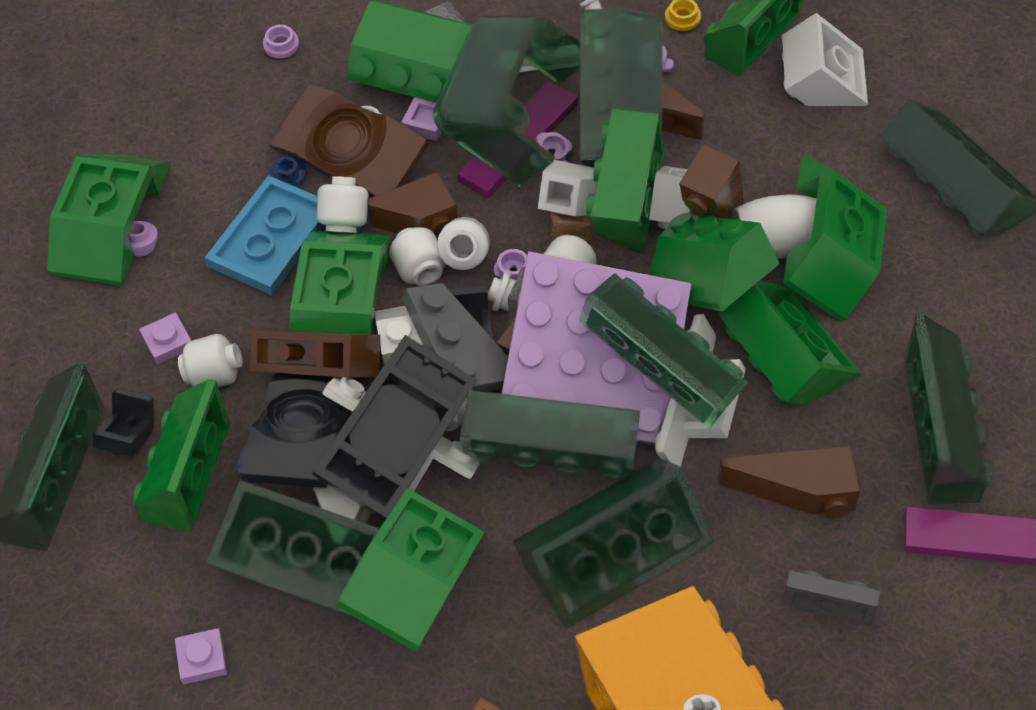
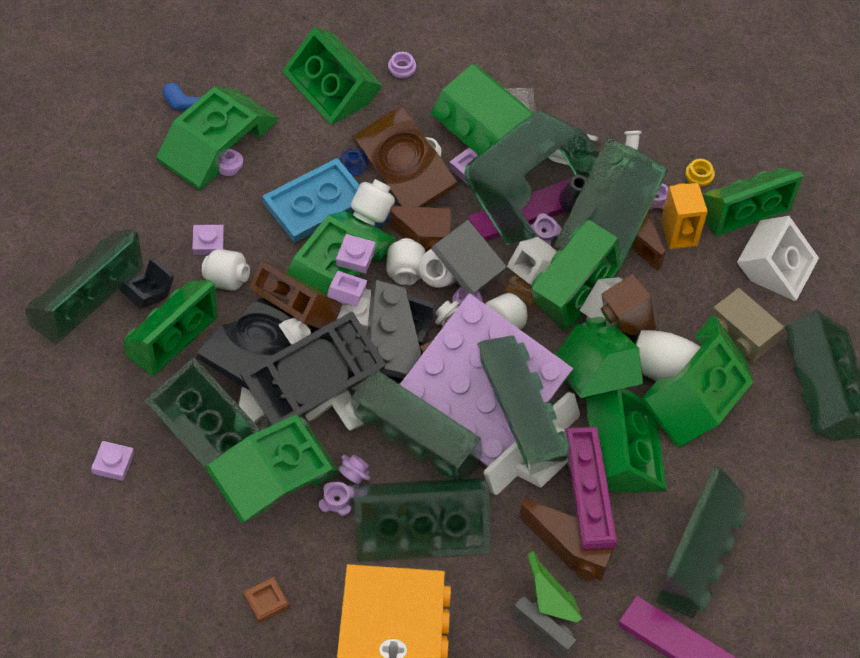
camera: 20 degrees right, 0 degrees up
(34, 193) = (177, 98): none -> blue arm
(205, 89) = (331, 76): none -> green slope
(363, 270) = (355, 253): none -> lavender plate
(378, 314) = (347, 288): none -> lavender plate
(496, 215) = (469, 258): none -> dark grey slope
(496, 555) = (333, 490): none -> lavender plate
(501, 521) = (354, 468): none -> lavender plate
(565, 96) = (571, 192): none -> black cone
(700, 64) = (683, 215): none -> light orange brick
(791, 412) = (590, 489): none -> magenta tile
(813, 552) = (550, 595): none -> bright green slope
(840, 147) = (748, 324): none -> dark tan brick

